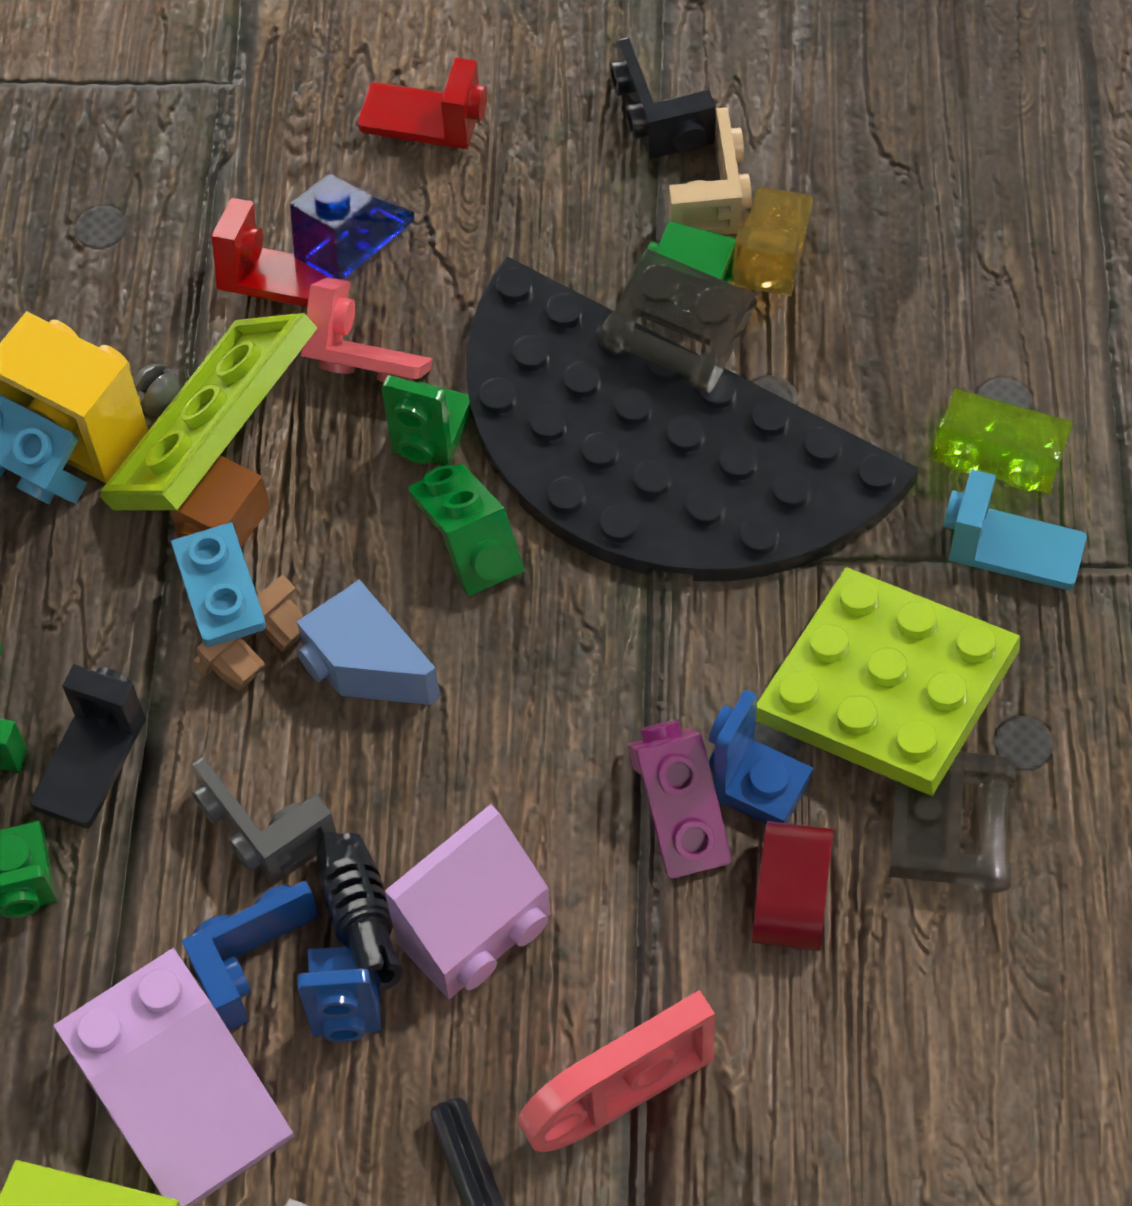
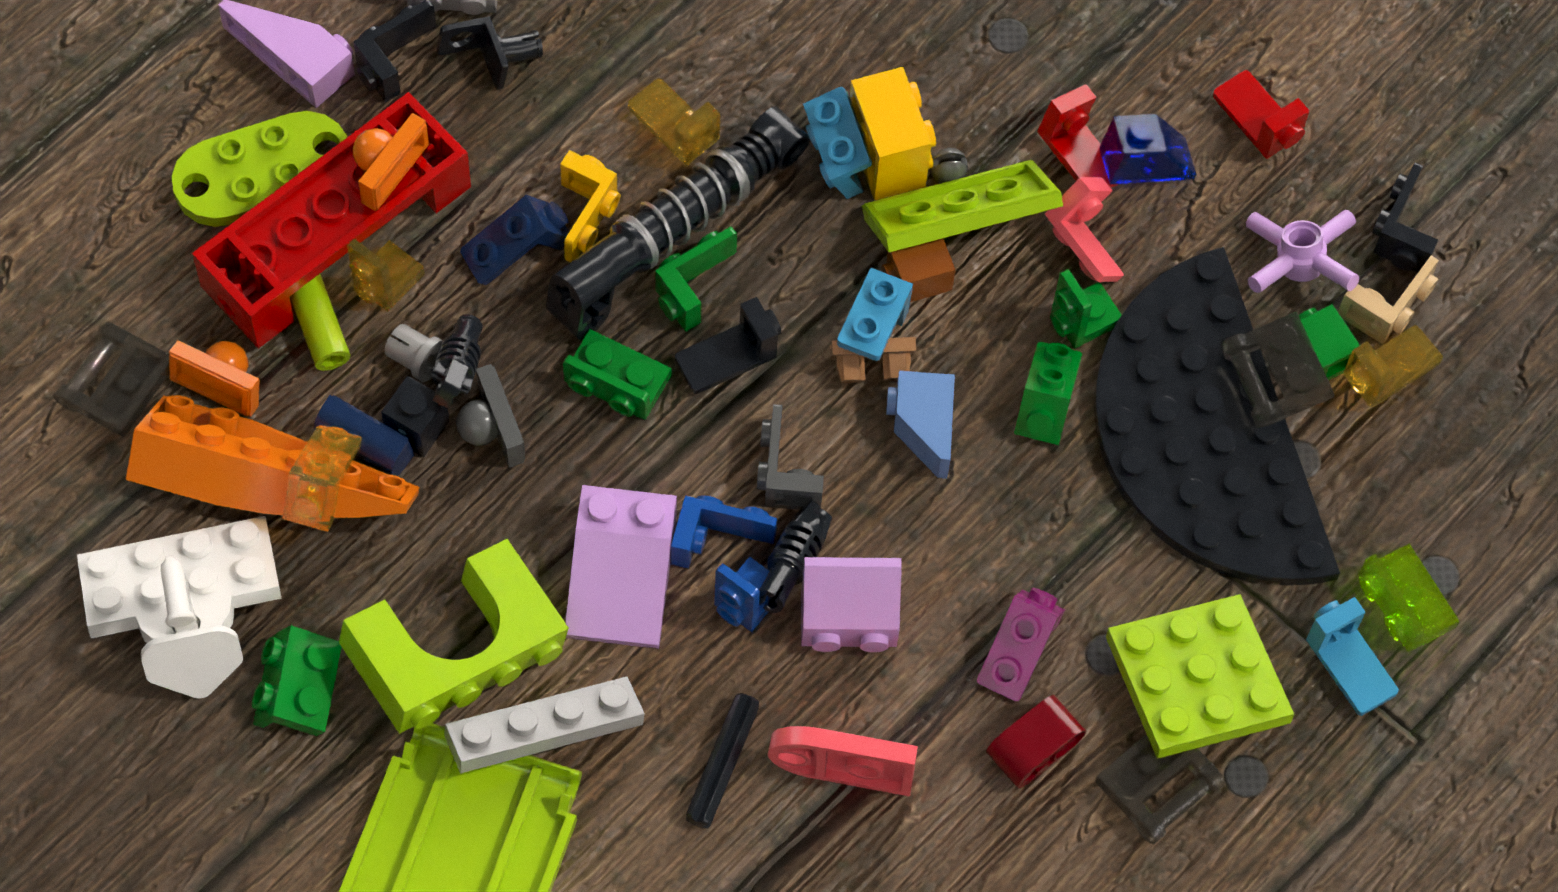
camera: 35 degrees right, 5 degrees up
(588, 199) = (1302, 251): none -> lavender bar
(749, 773) = (1073, 660): blue bracket -> none

